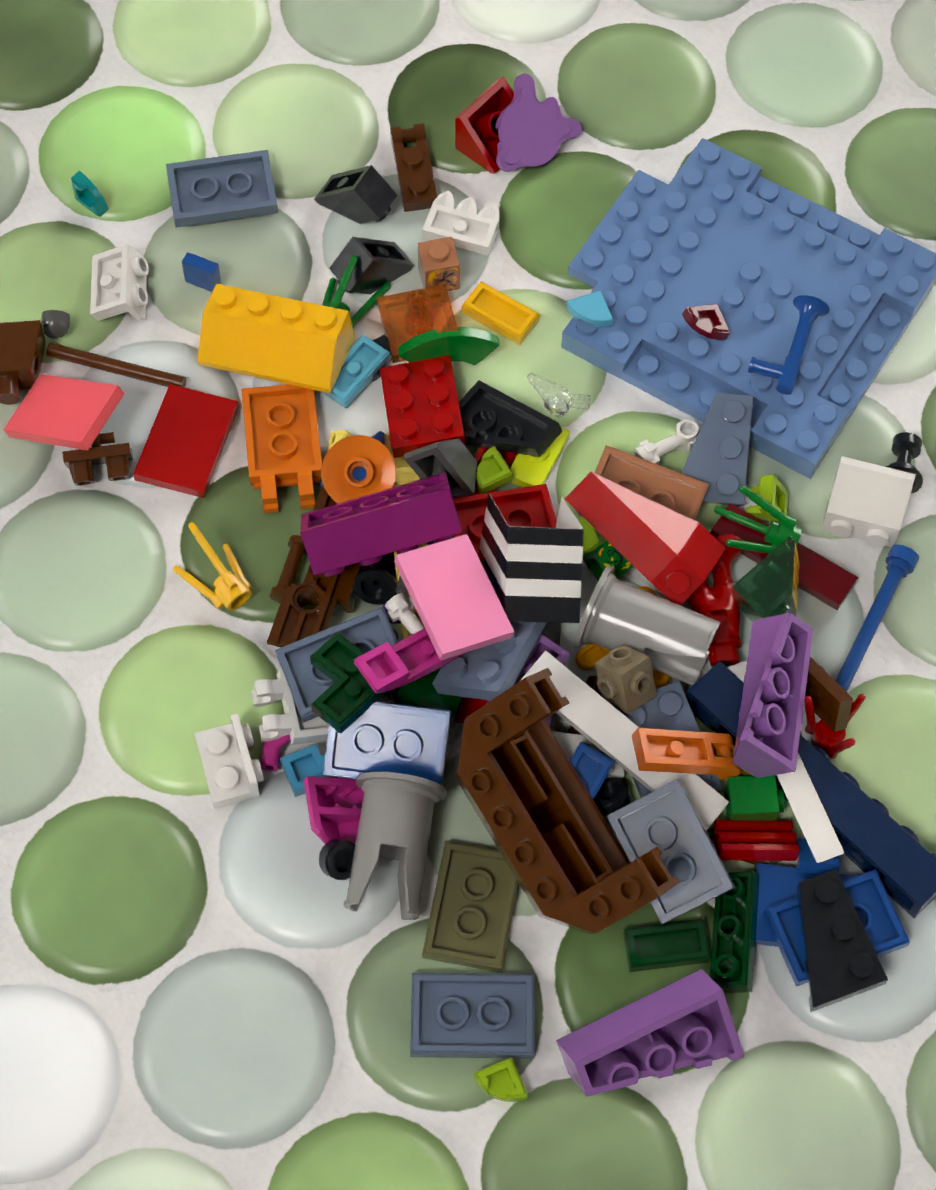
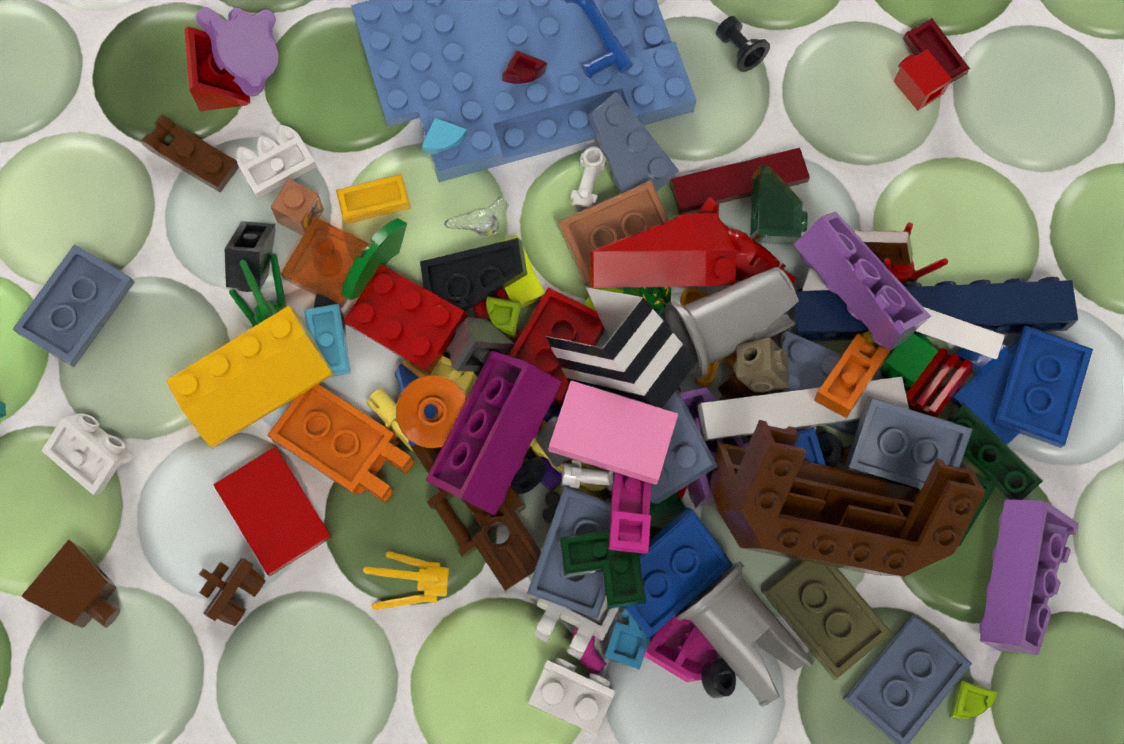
camera: 50 degrees left, 10 degrees up
(55, 323) = (76, 528): dark grey hinge -> none
(64, 411) = (168, 585): coral tile -> none
(114, 366) = (155, 512): reddish brown bar -> none
(200, 272) = (137, 381): blue tile -> none
(358, 195) = (178, 213): black slope -> none
(774, 493) = (695, 150): lime tile -> none
(774, 534) = (734, 169): green plant -> none
(837, 947) = (1063, 397): black wing -> none
(867, 502) = (756, 92): white slope -> none
(900, 562) = (812, 112): blue piece -> none

